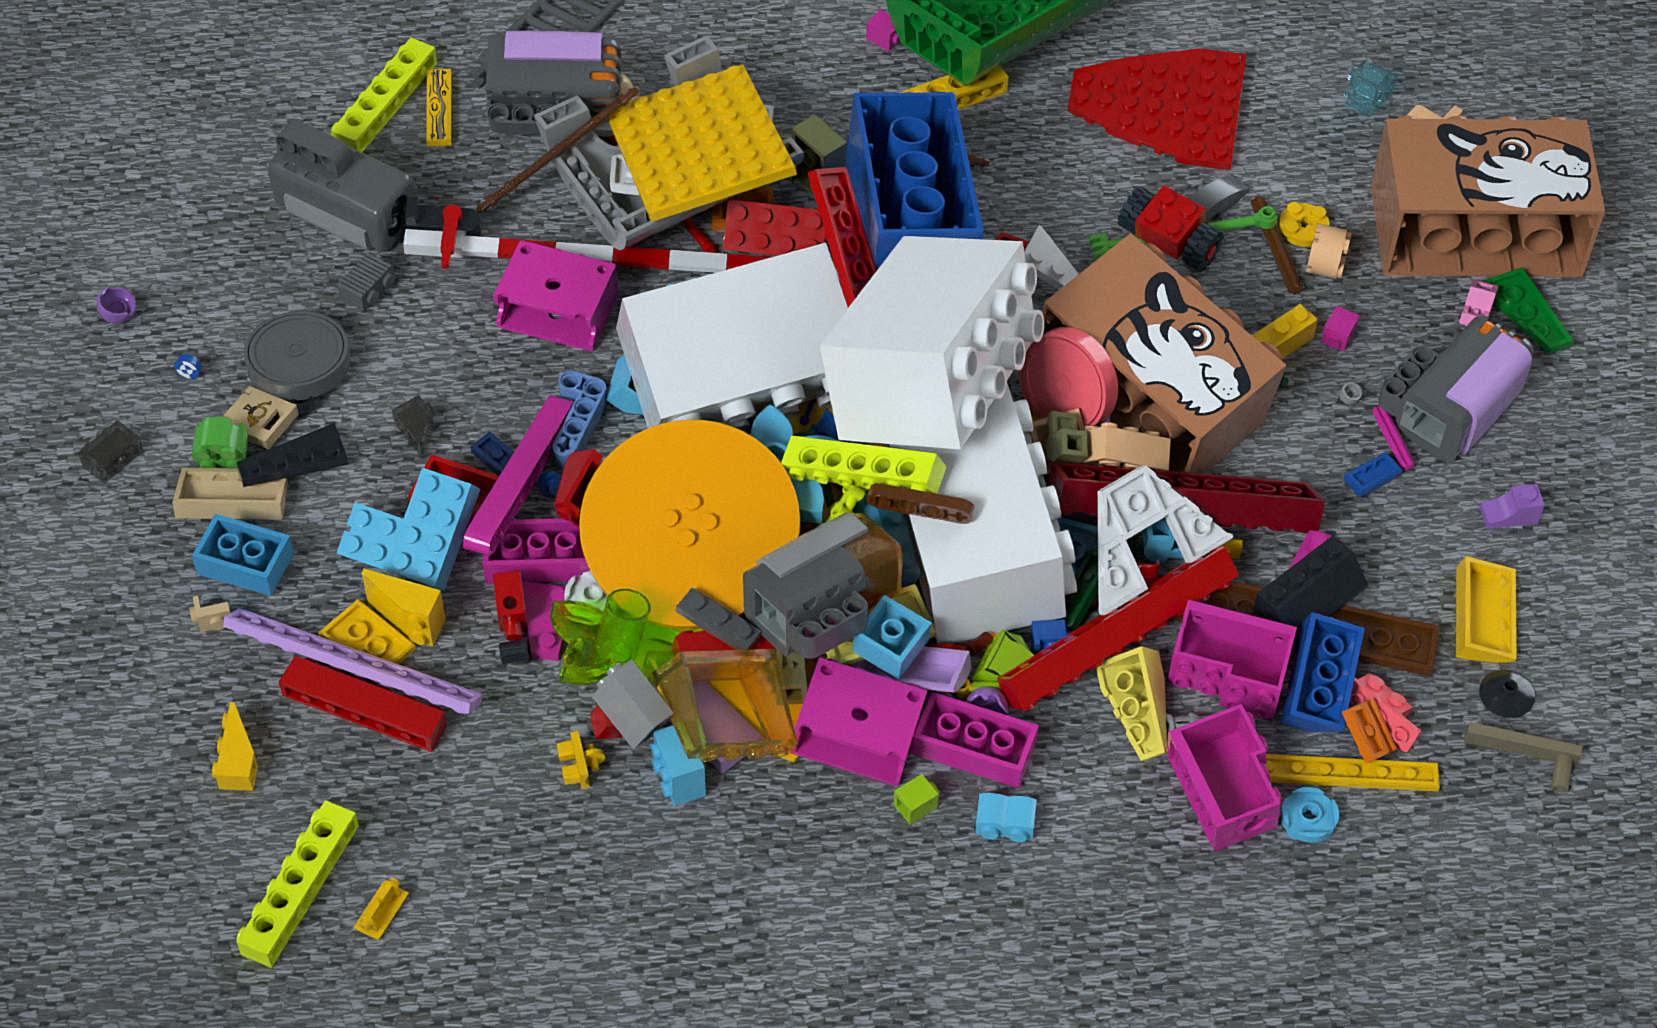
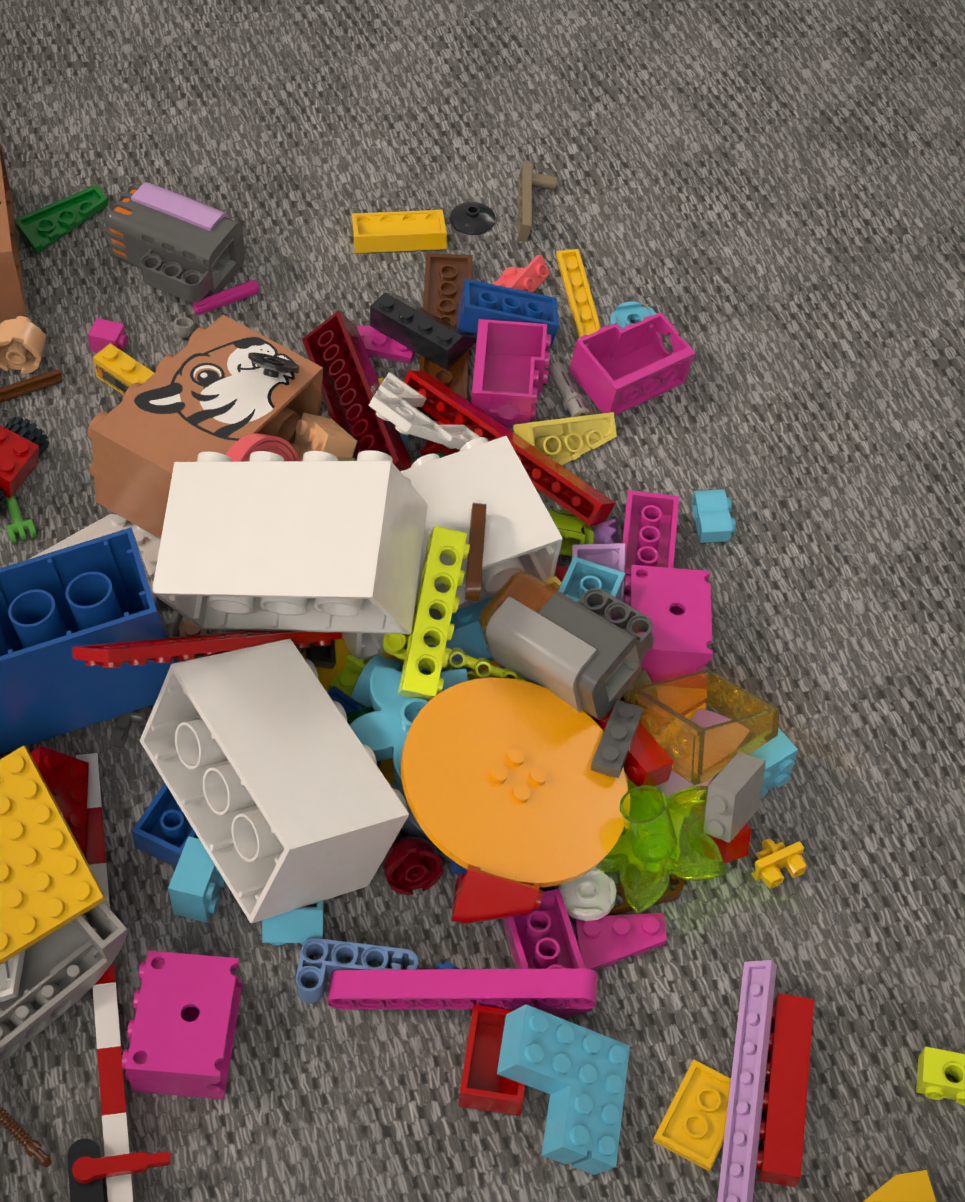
camera: 105 degrees left, 0 degrees up
(408, 606) = (667, 1053): yellow slope -> none
(416, 423) = (400, 1140): clear smoke slope -> none
(492, 452) = (422, 1040): dark blue plate -> none
(510, 604) = (624, 966): red torso -> none
(515, 651) = (671, 953): black bush -> none
(916, 798) = (723, 581): lime brick -> none
(1198, 384) = (272, 364): none -> black dish
(1369, 730) = (549, 285): orange plate -> none
(1372, 474) = (272, 306): blue plate -> none
(1478, 301) = (66, 246): bright pink brick -> none
(1517, 507) = (289, 215): medium lavender arch -> none

